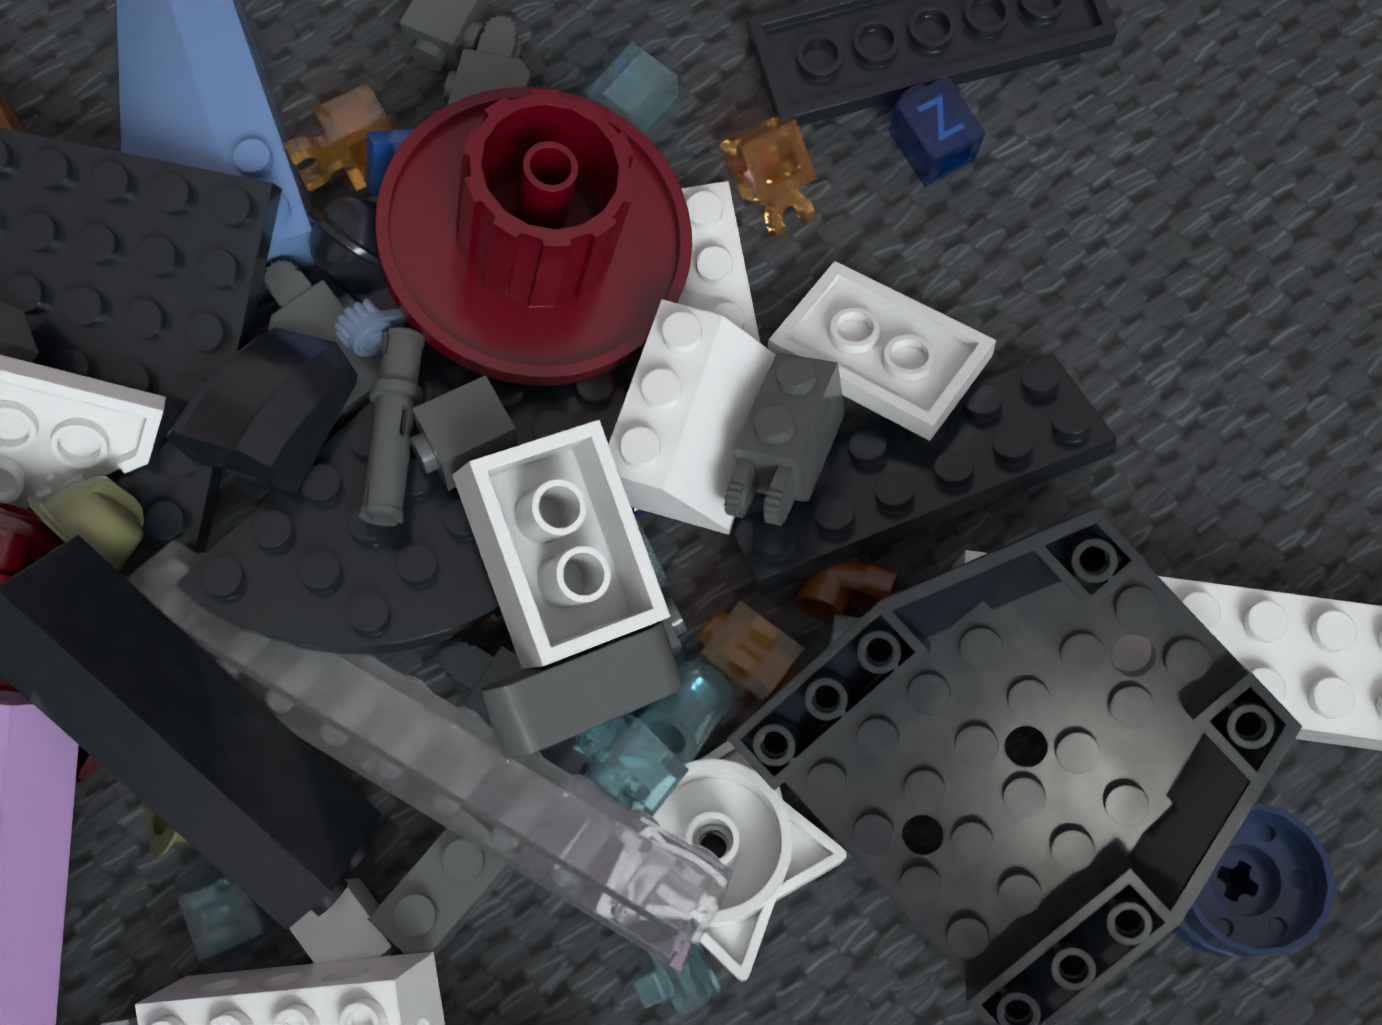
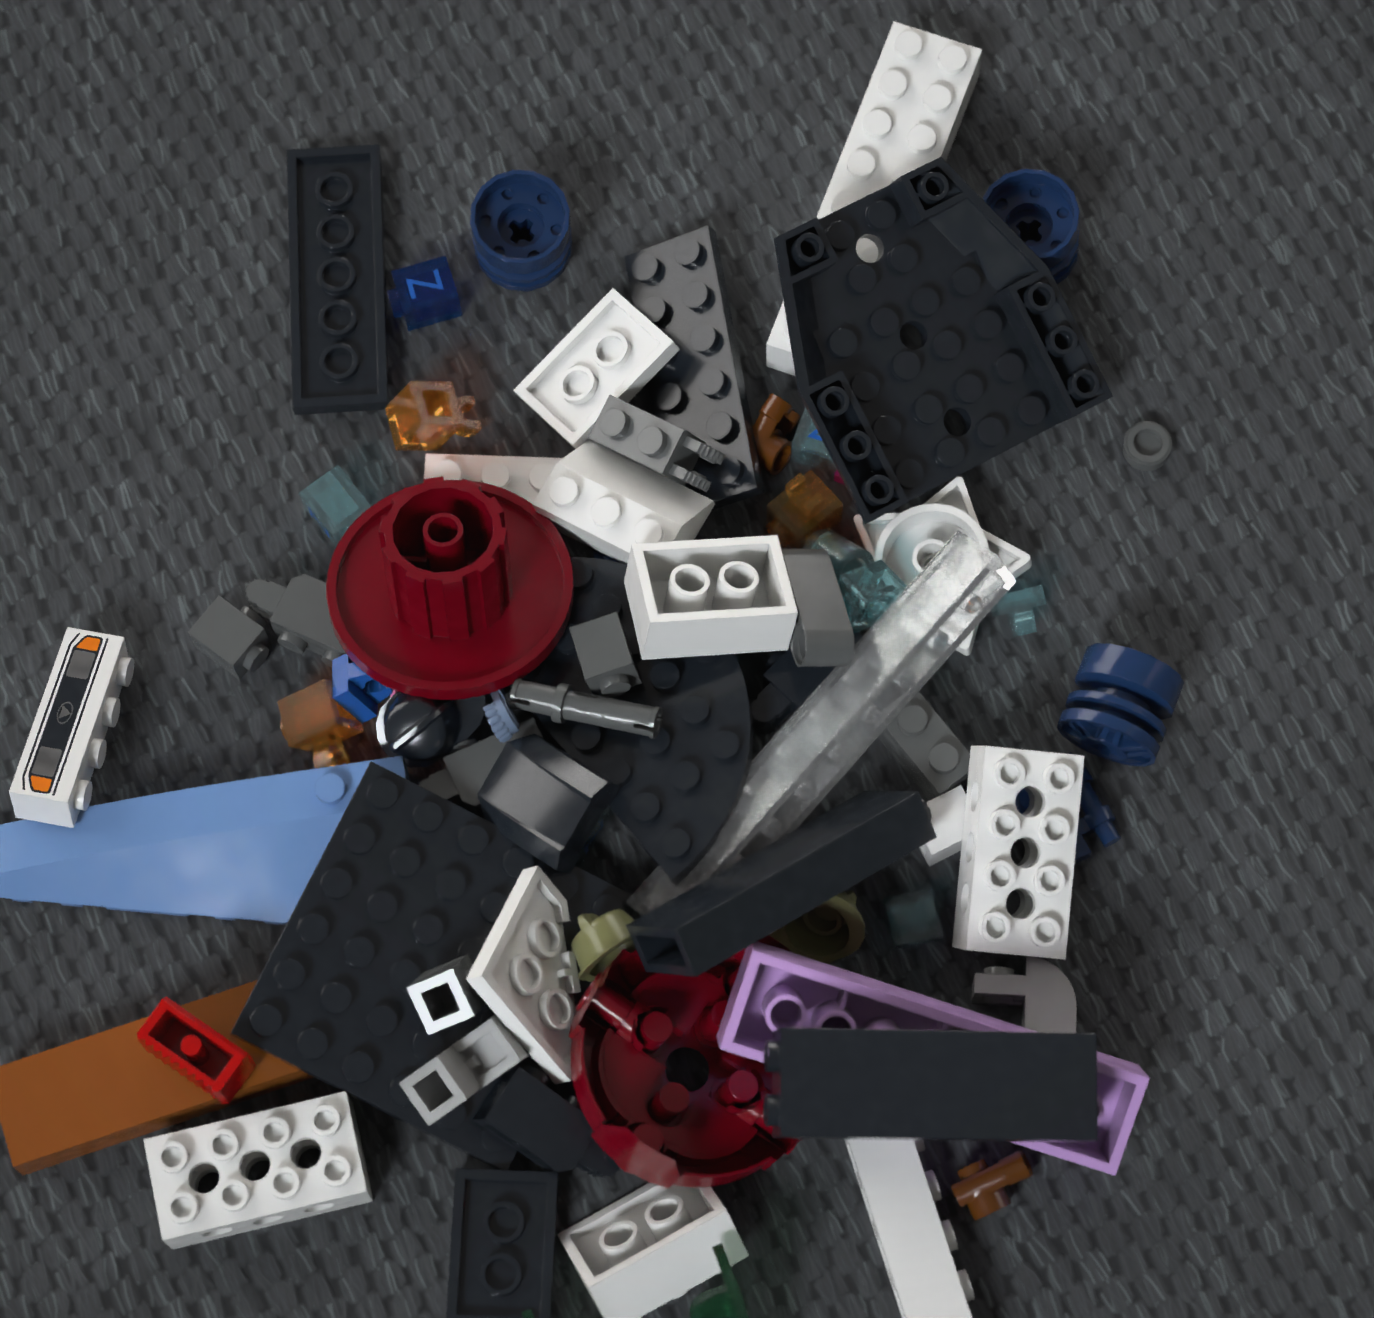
camera: 75 degrees left, 5 degrees down
(1050, 180) = (520, 206): none -> dark blue wheel

